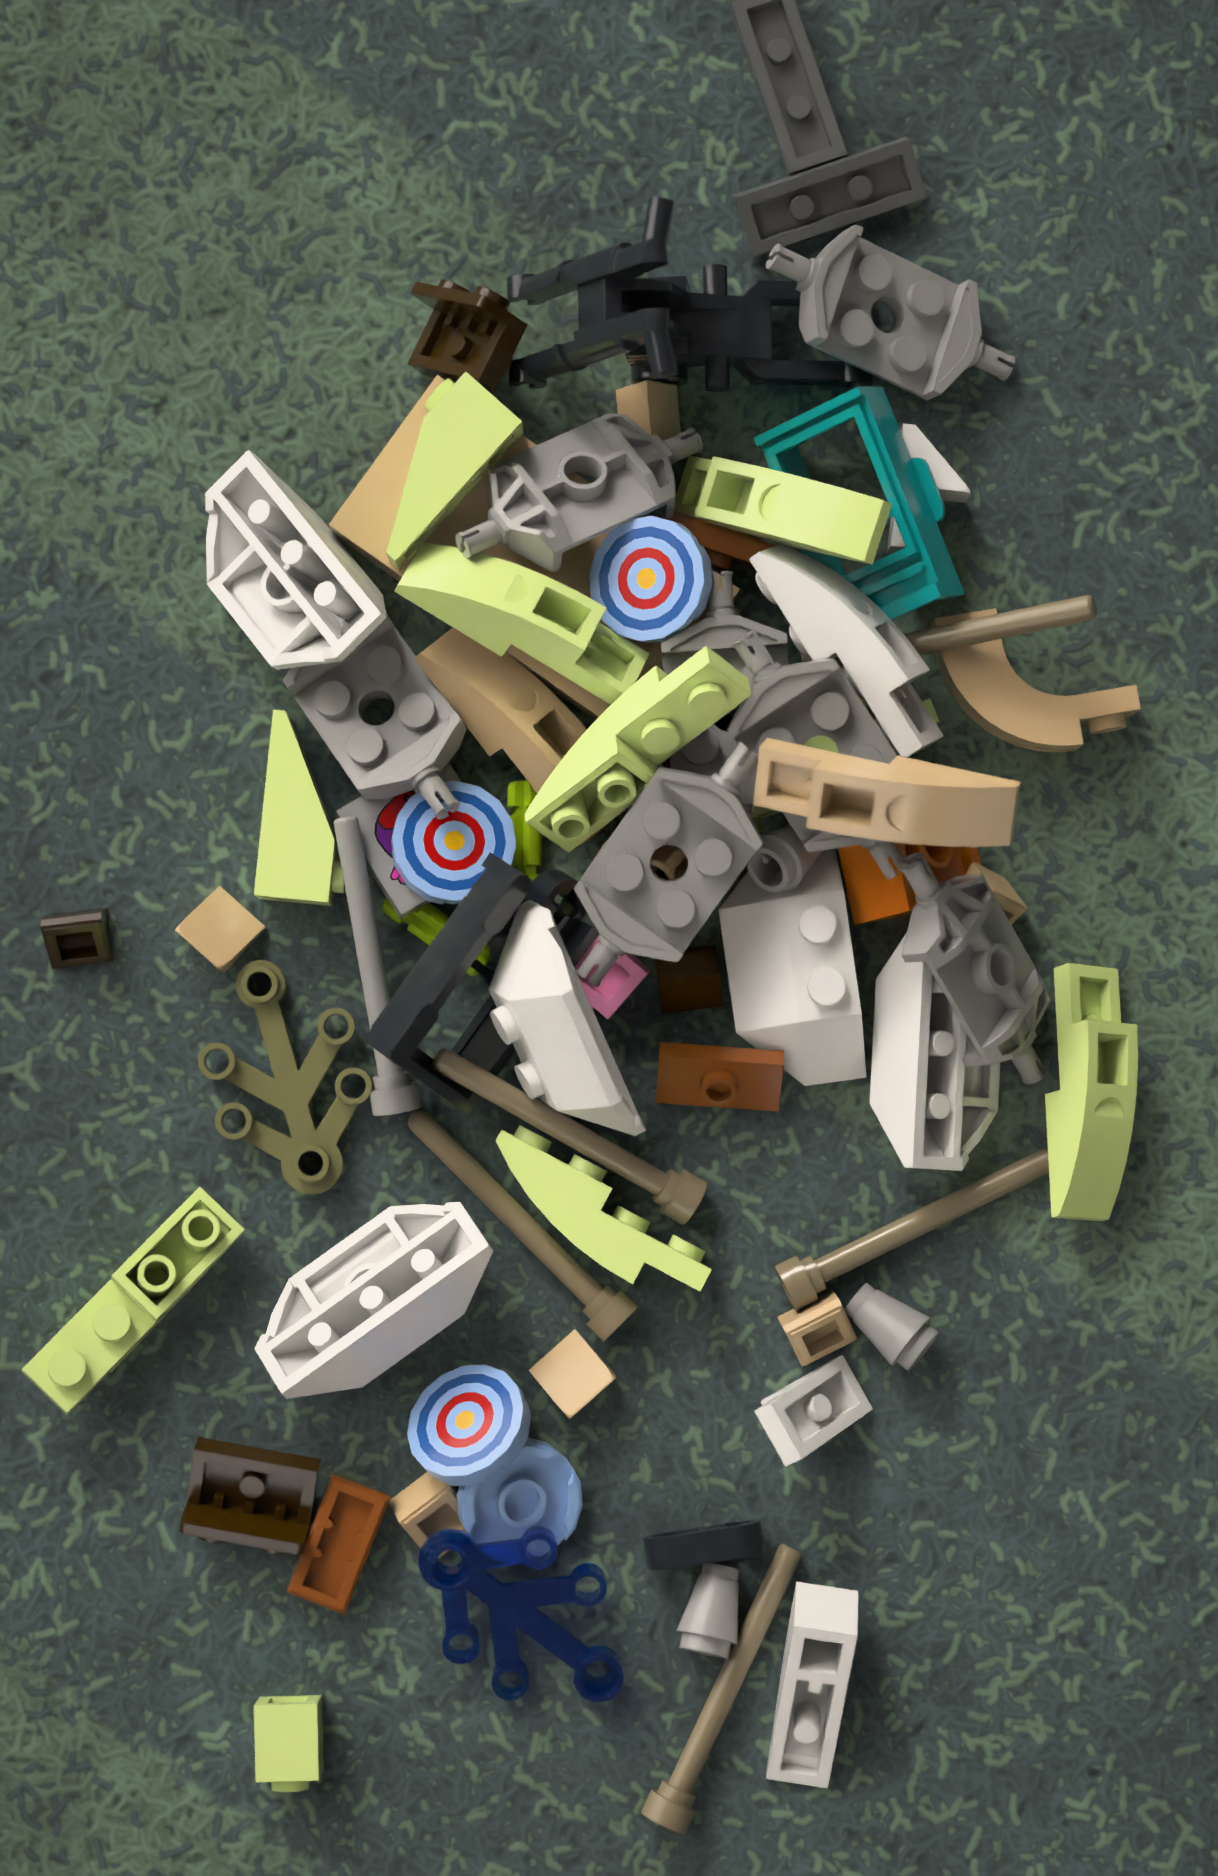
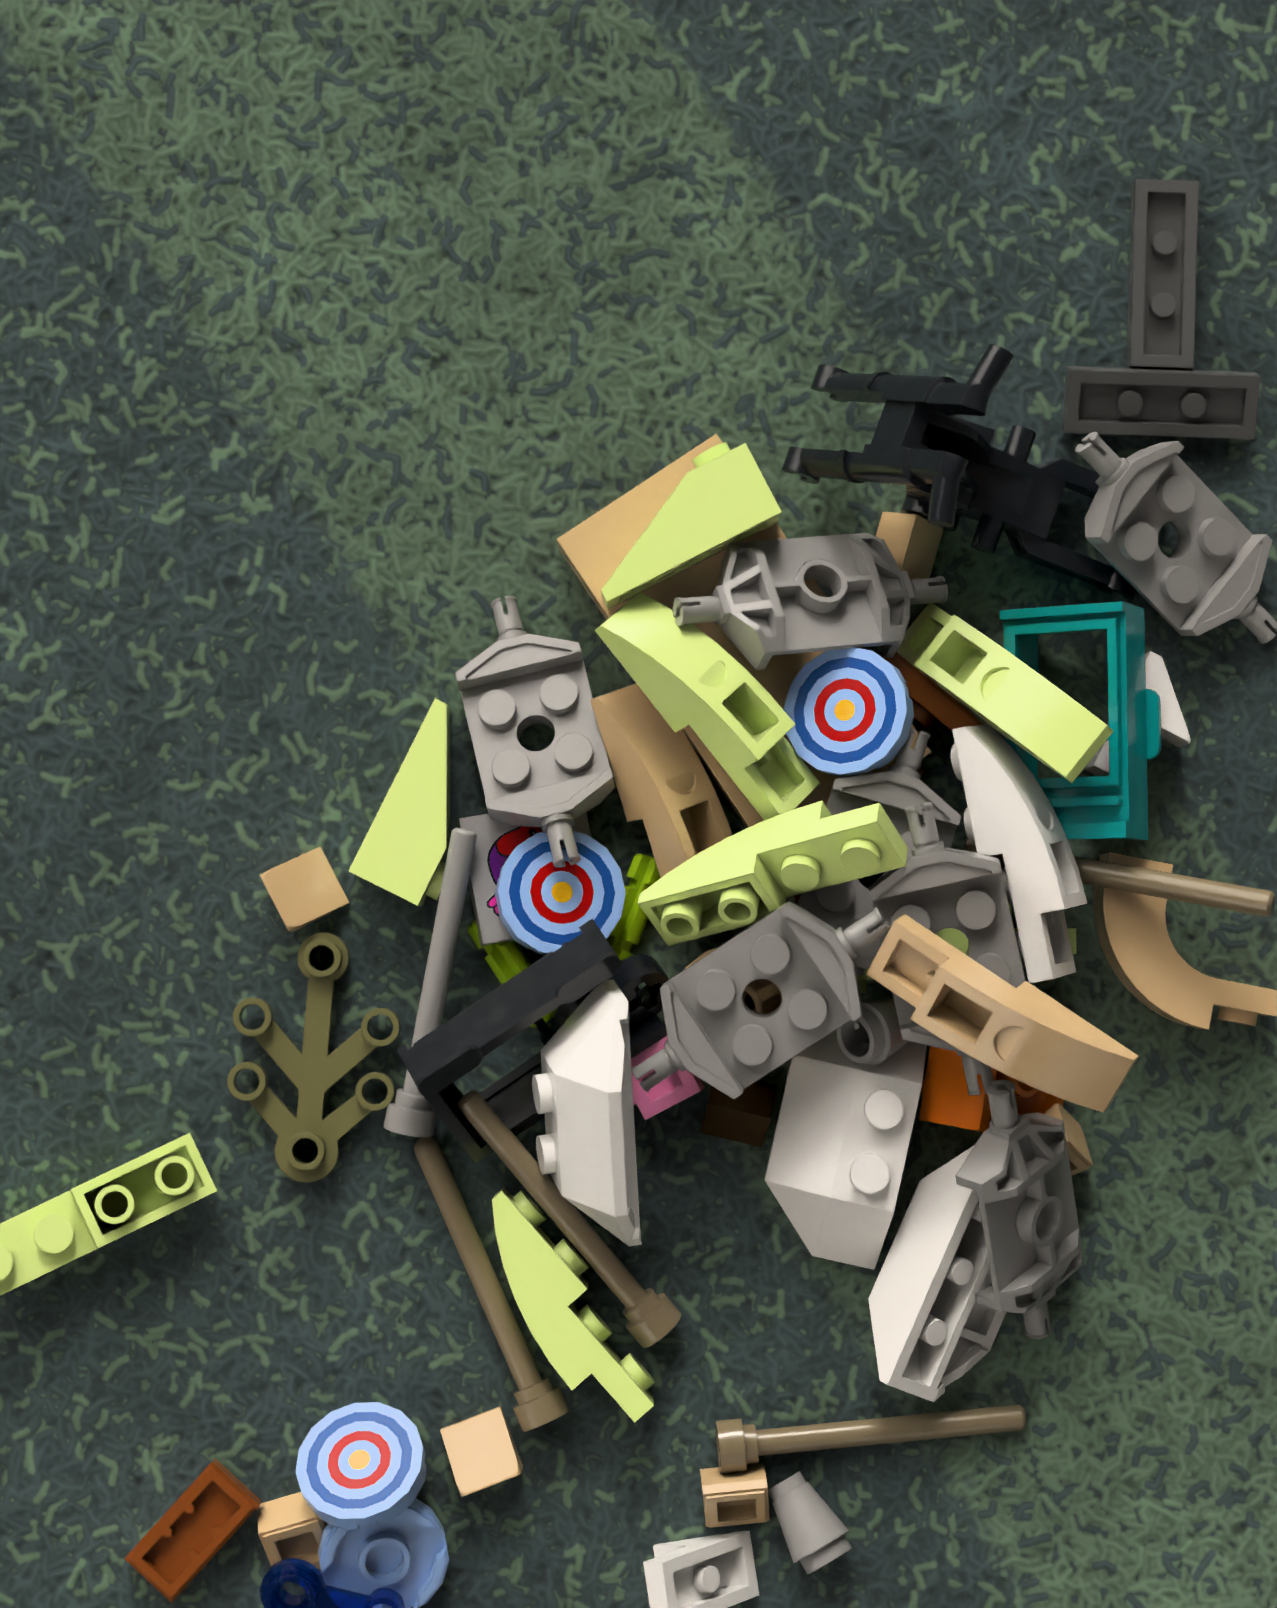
camera: 15 degrees right, 0 degrees up
(77, 937) = (164, 844): dark brown slope -> none
(250, 1496) = (124, 1453): dark brown bracket -> none
(284, 571) = (498, 569): white wedge -> none
(373, 1299) = (314, 1306): white wedge -> none
(466, 334) = (759, 405): dark brown bracket -> none
(719, 1076) = (732, 1216): dark orange plate -> none
(1096, 1101) = (1086, 1388): yellowish green slope -> none

